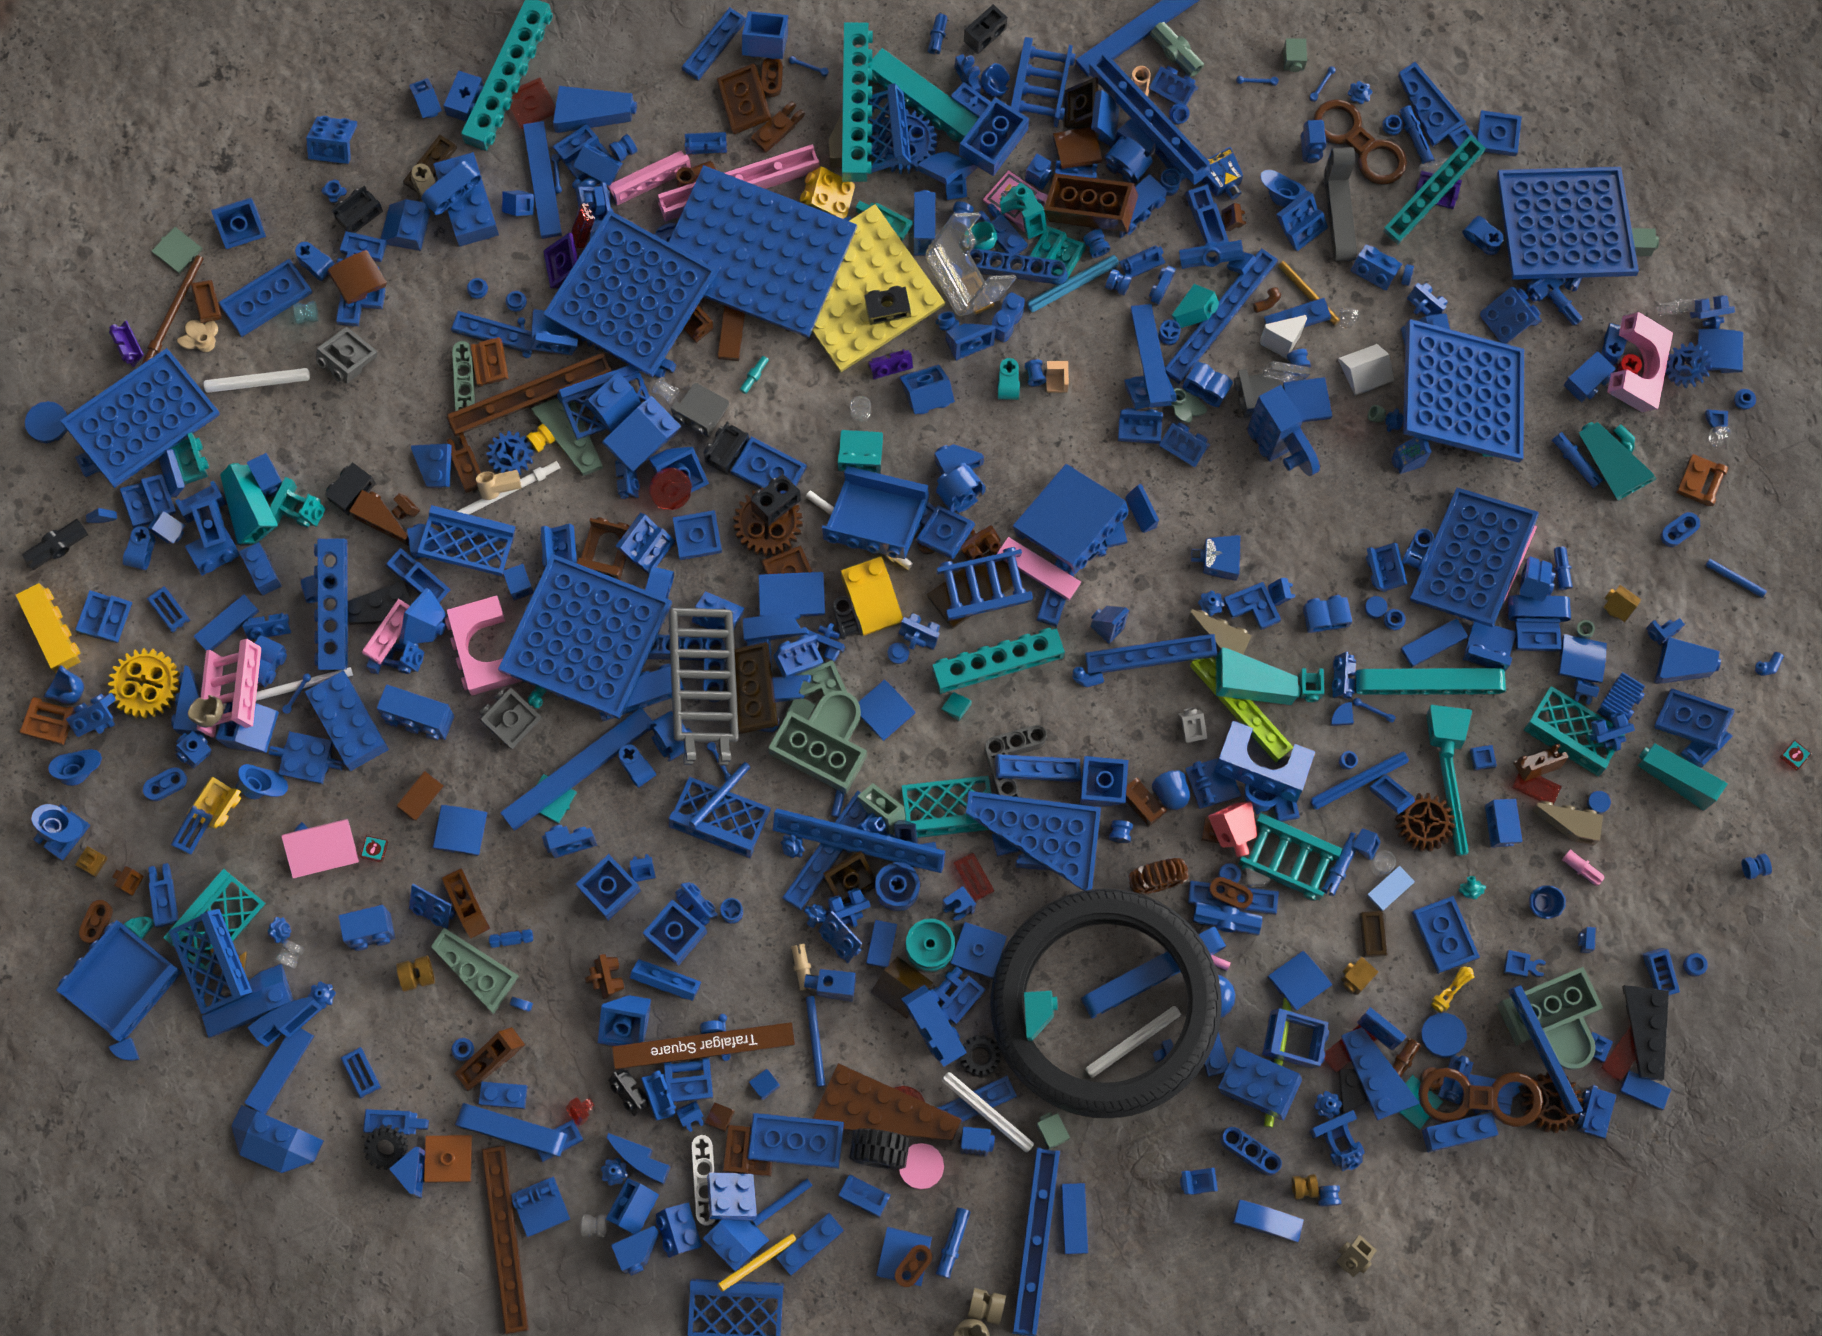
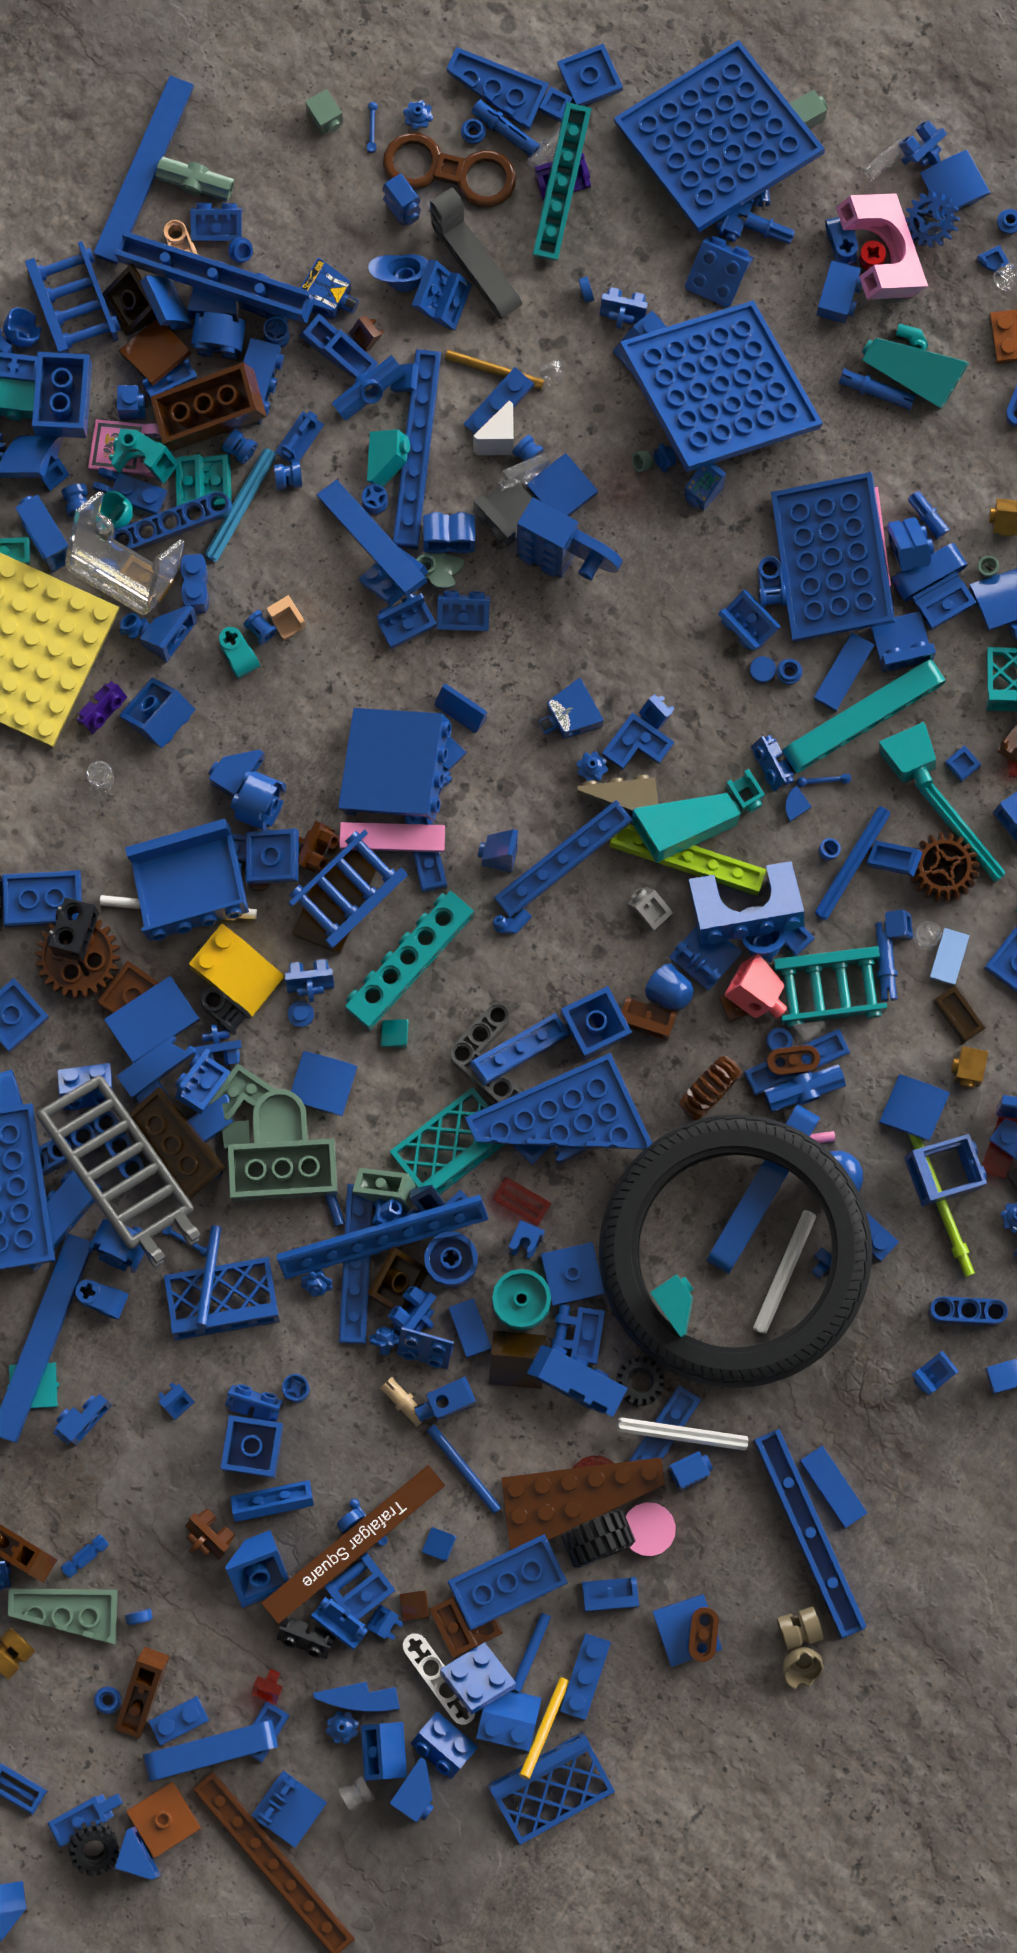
camera: 30 degrees left, 5 degrees up
(608, 887) = (153, 1442): blue brick -> none
(860, 450) = (128, 821): teal bracket -> none
(878, 313) = (57, 662): black brick -> none
(953, 1242) = (727, 1584): blue pin -> none
(1052, 1130) = (758, 1412): sand green brick -> none
(1121, 831) = (643, 1063): blue wheel -> none
(1165, 277) = (334, 440): blue plate -> none
(1260, 1083) = (937, 1237): blue brick -> none
(1273, 81) = (318, 154): blue hinge -> none
(1274, 297) = (459, 405): reddish brown arm -> none
(1327, 614) = (718, 707): blue brick -> none
(1367, 369) = (603, 417): white slope -> none
(1376, 267) = (548, 299): blue bracket -> none
(1483, 235) = (636, 199): blue piece -> none

